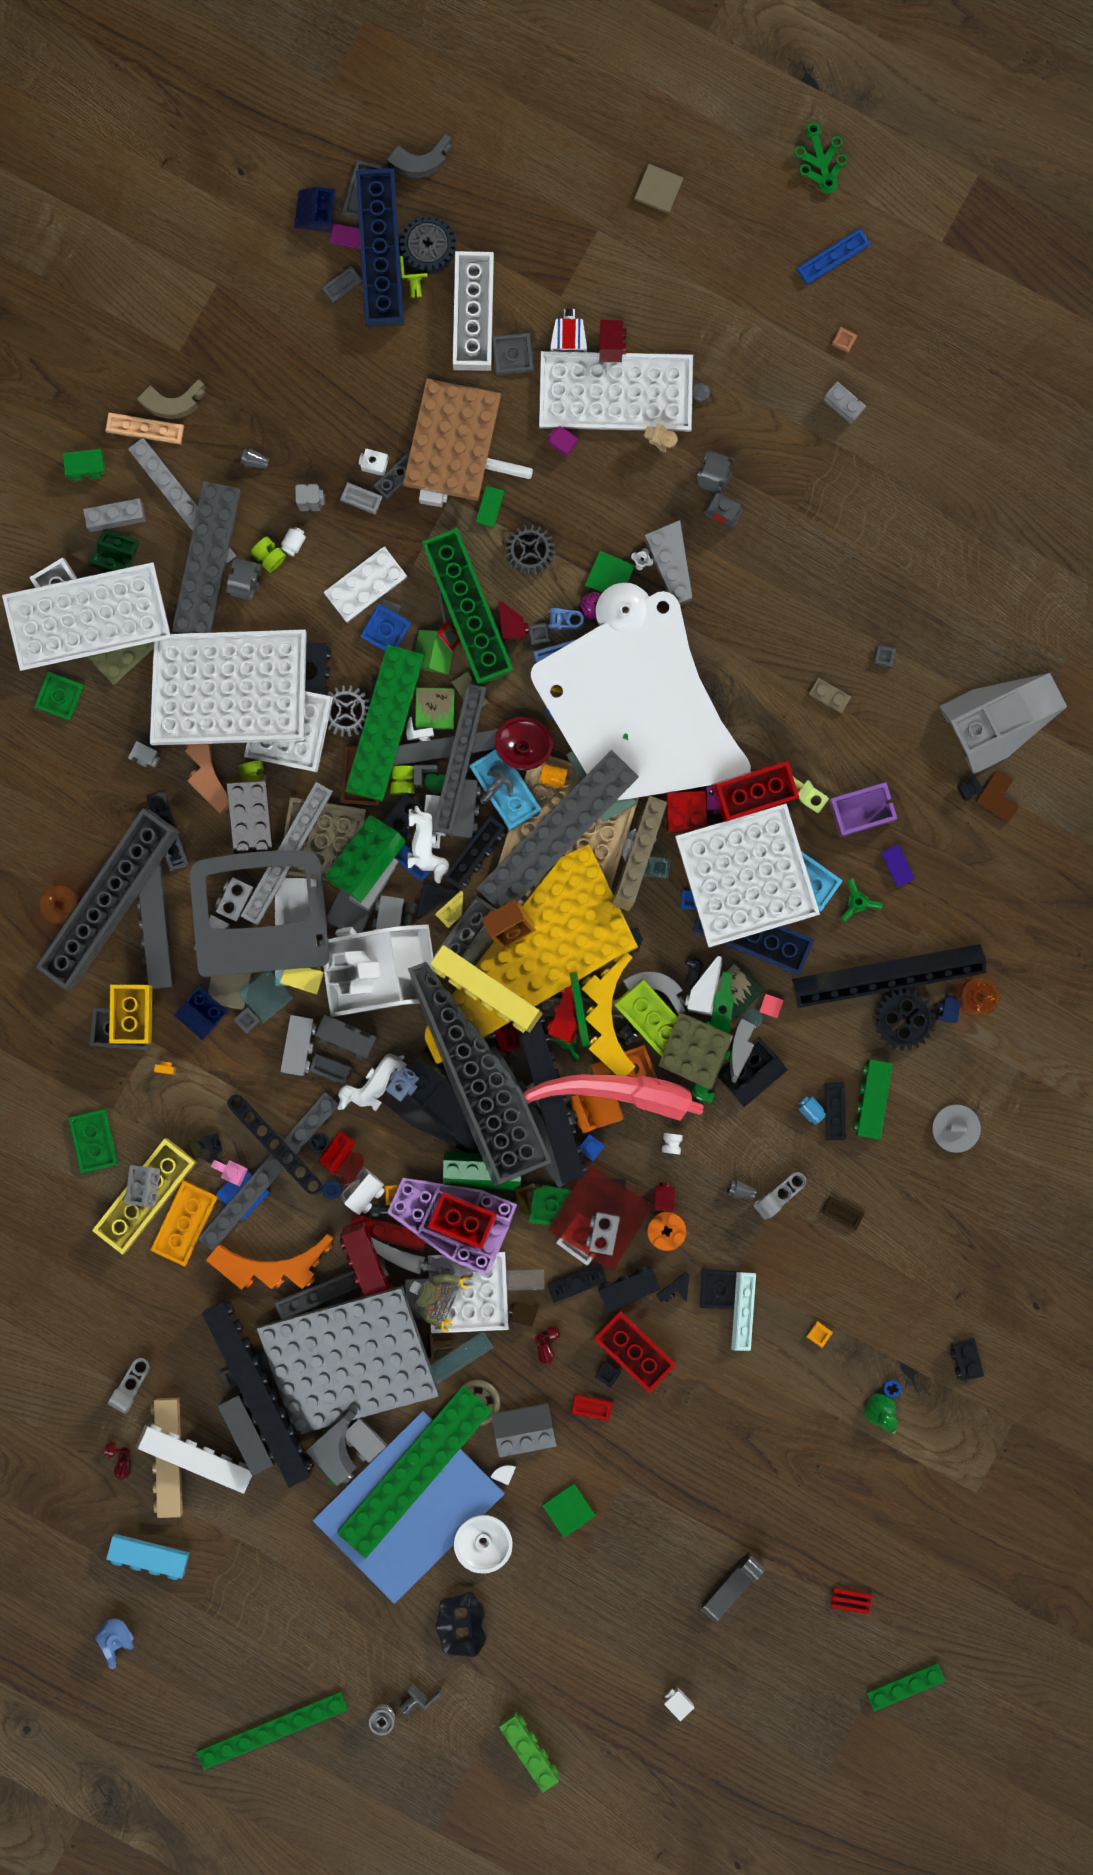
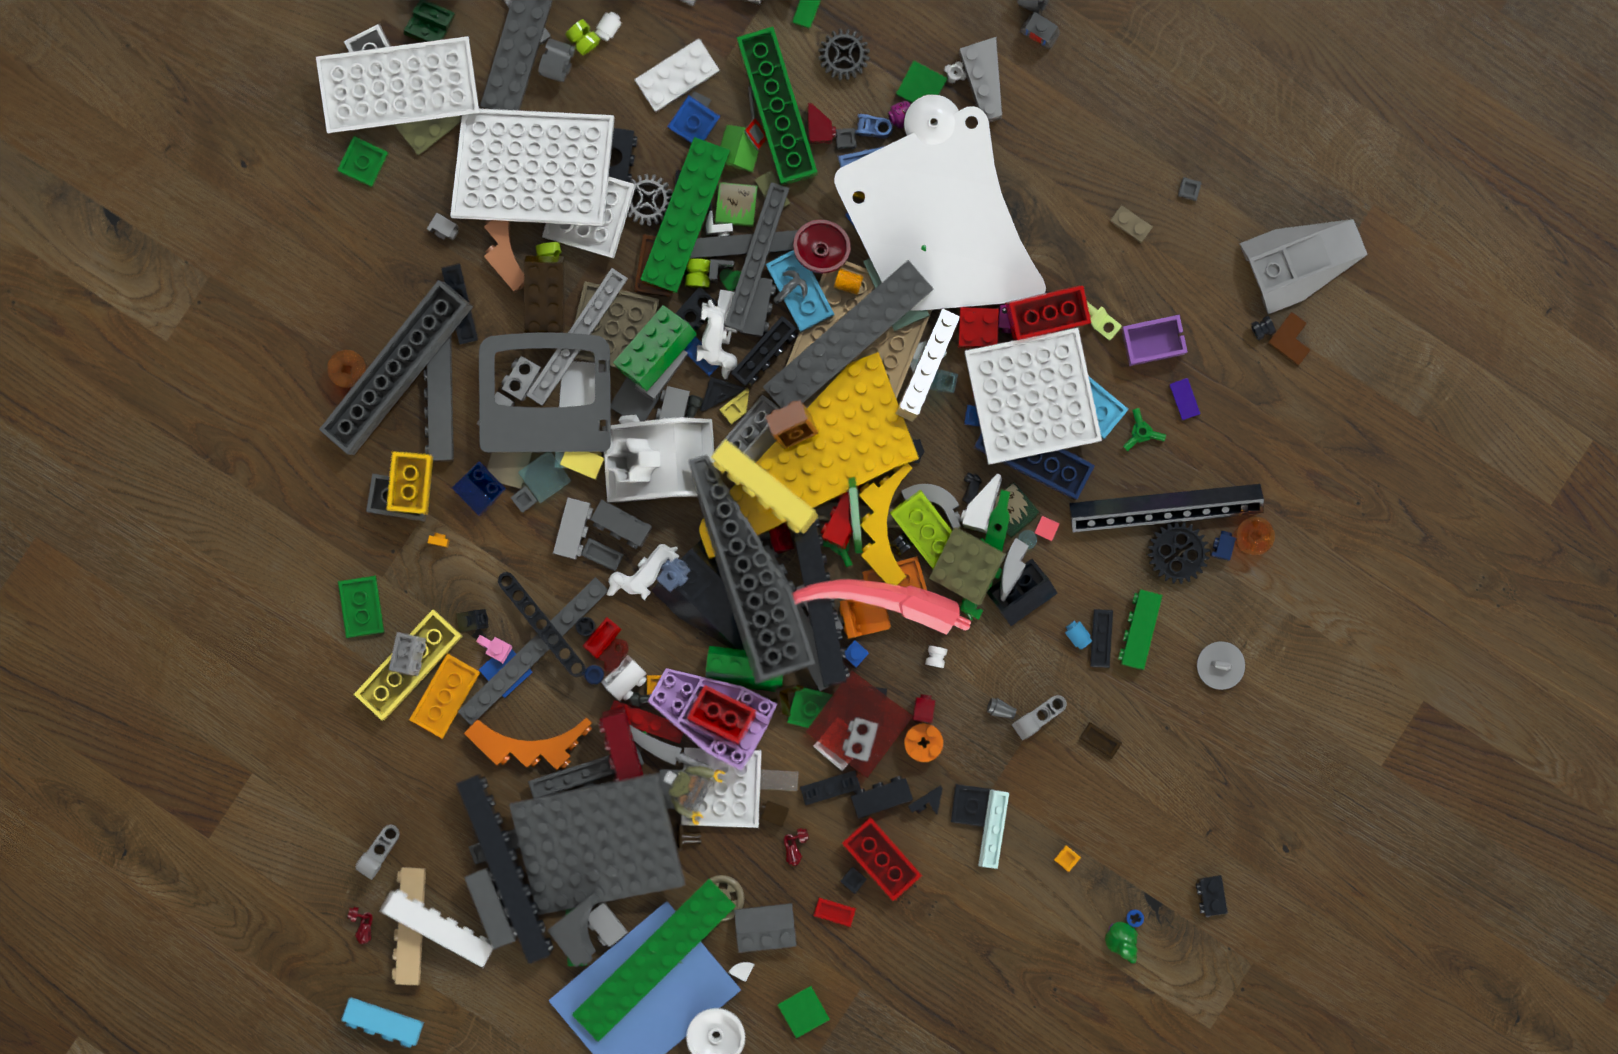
camera: 10 degrees right, 0 degrees up
(461, 1357) = (709, 850): clear light blue plate -> none

